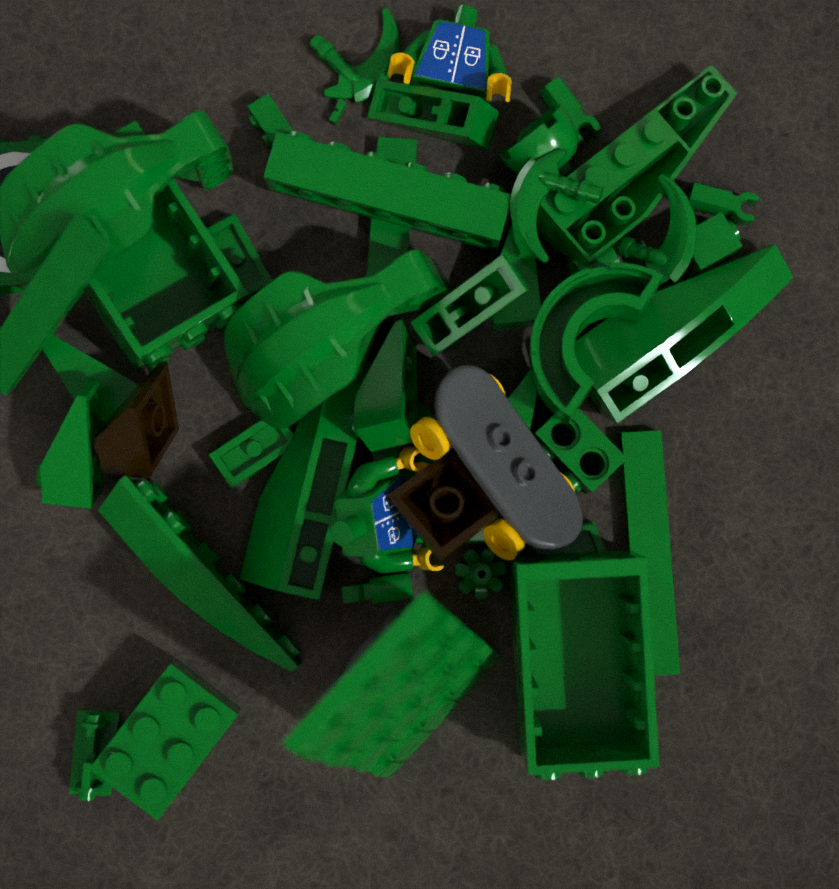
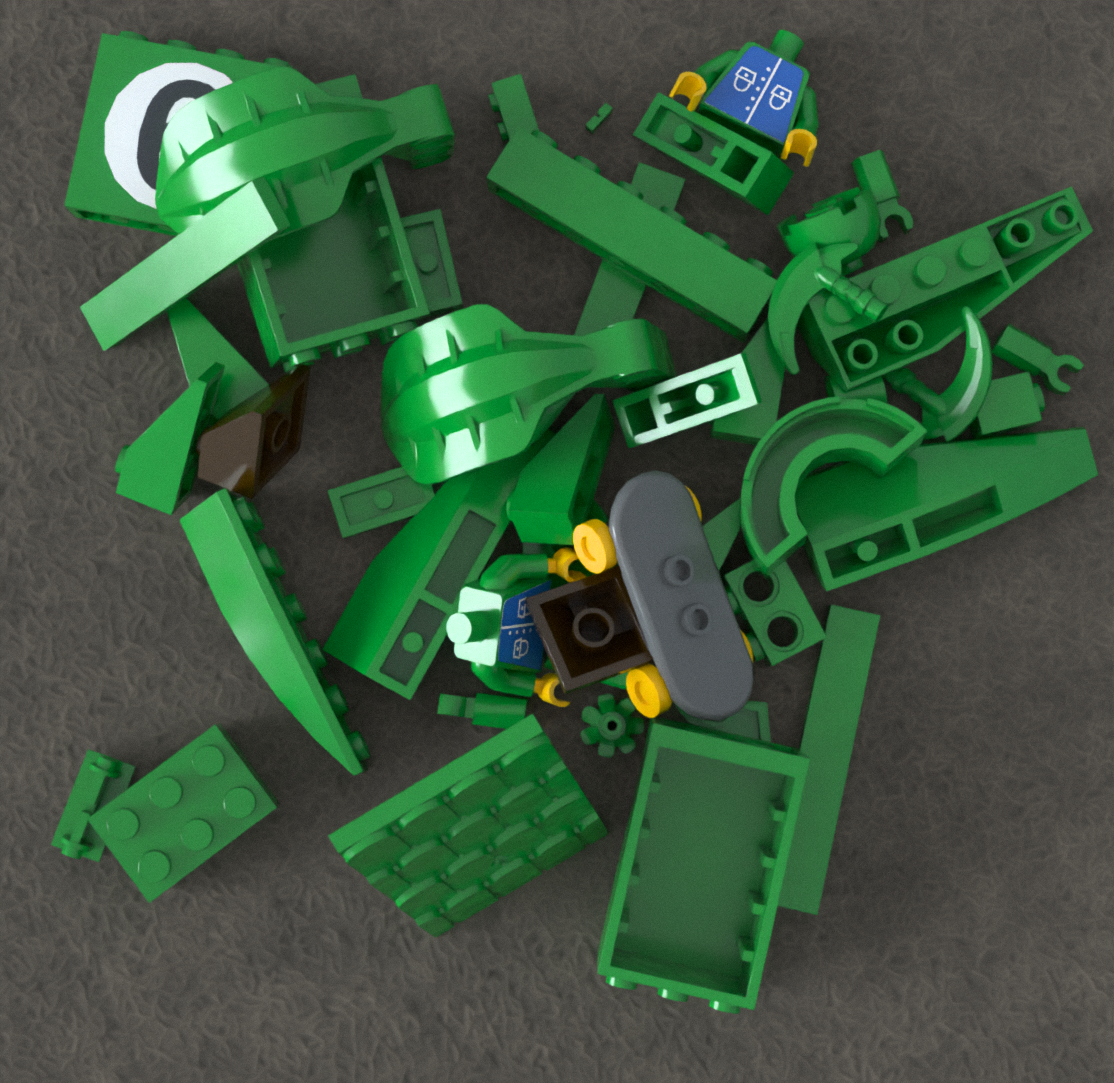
camera: 25 degrees right, 0 degrees up
(361, 80) = (639, 86): green piece -> none

